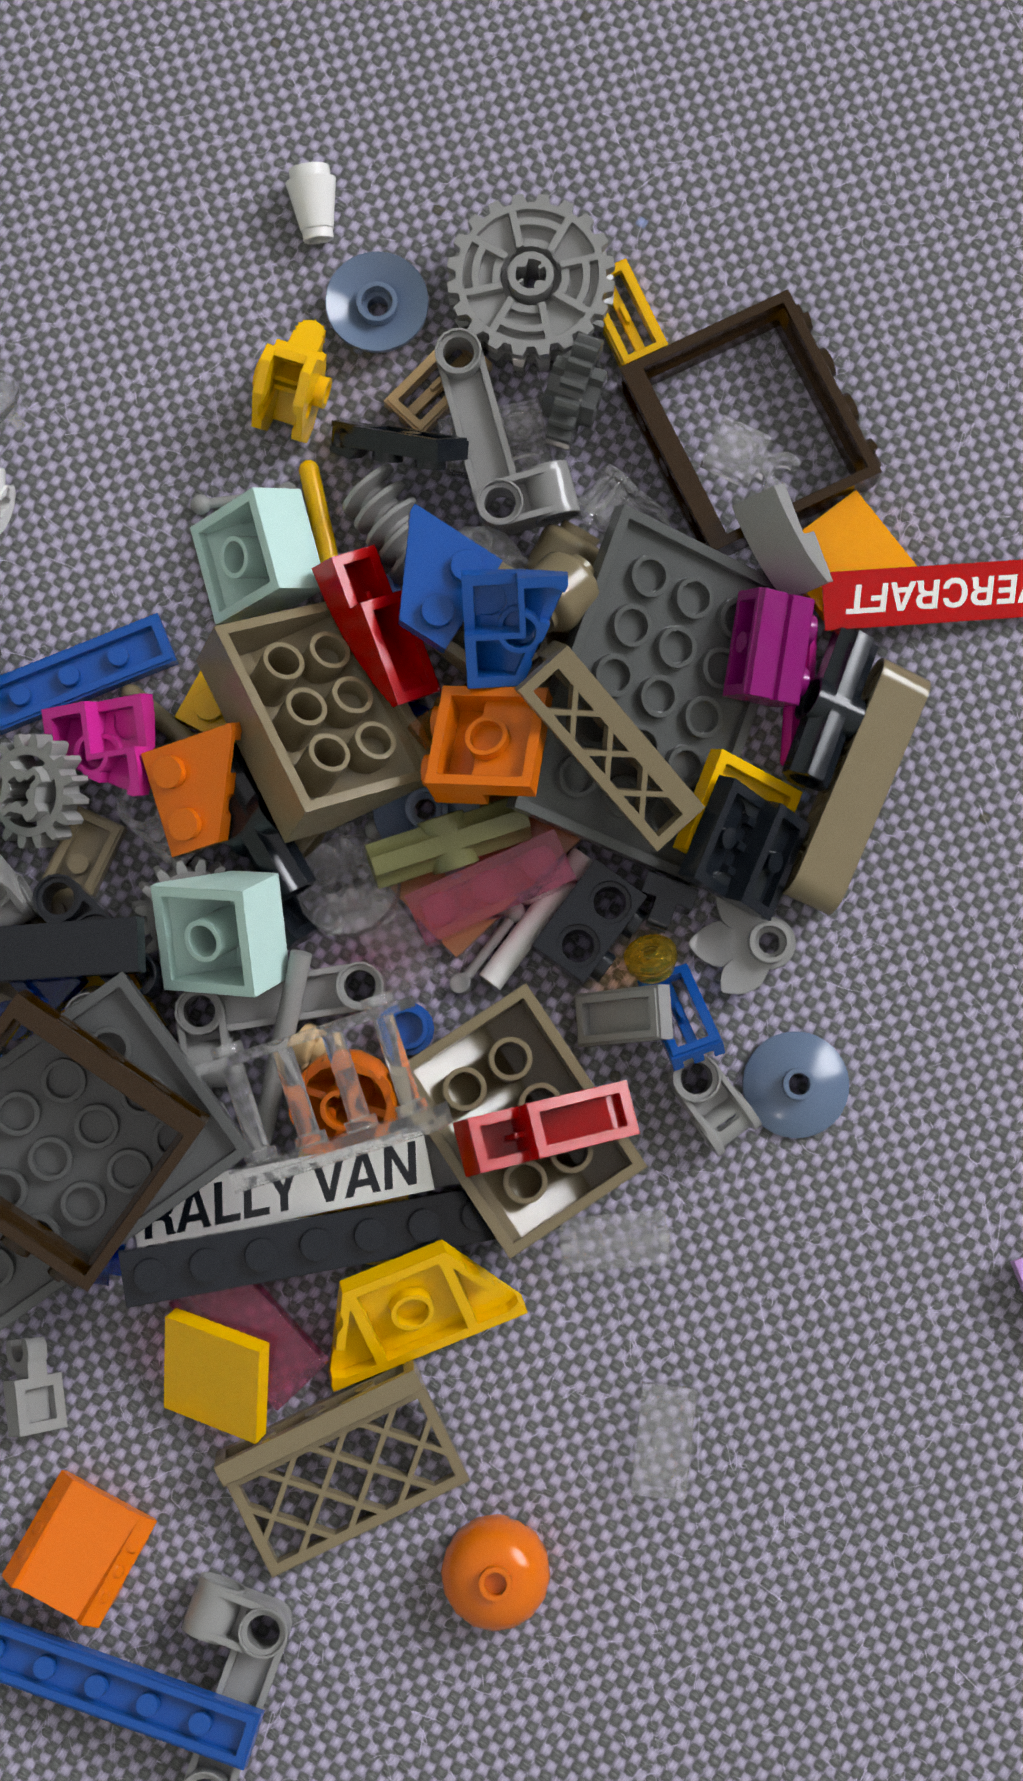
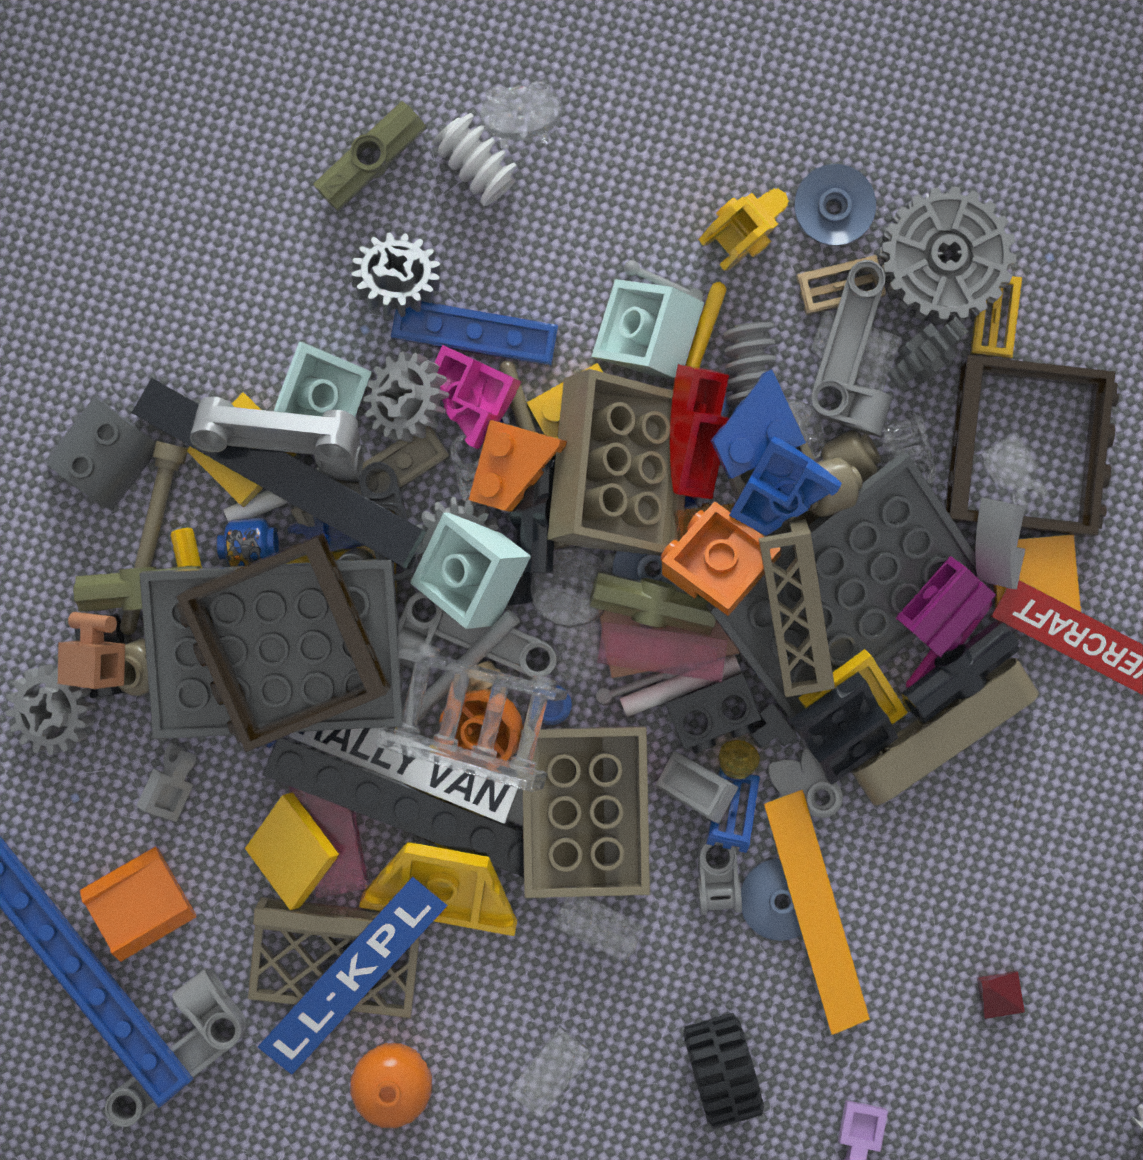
camera: 30 degrees right, 5 degrees up
(313, 200) = (836, 106): white cone -> none
(372, 1474) = (352, 975): none -> blue sticker
(394, 443) = (787, 313): black hinge -> none
(545, 1128) = (599, 831): red slope -> none
(844, 1071) = (816, 911): none -> light orange sticker
(855, 1312) = (723, 1070): none -> black tyre

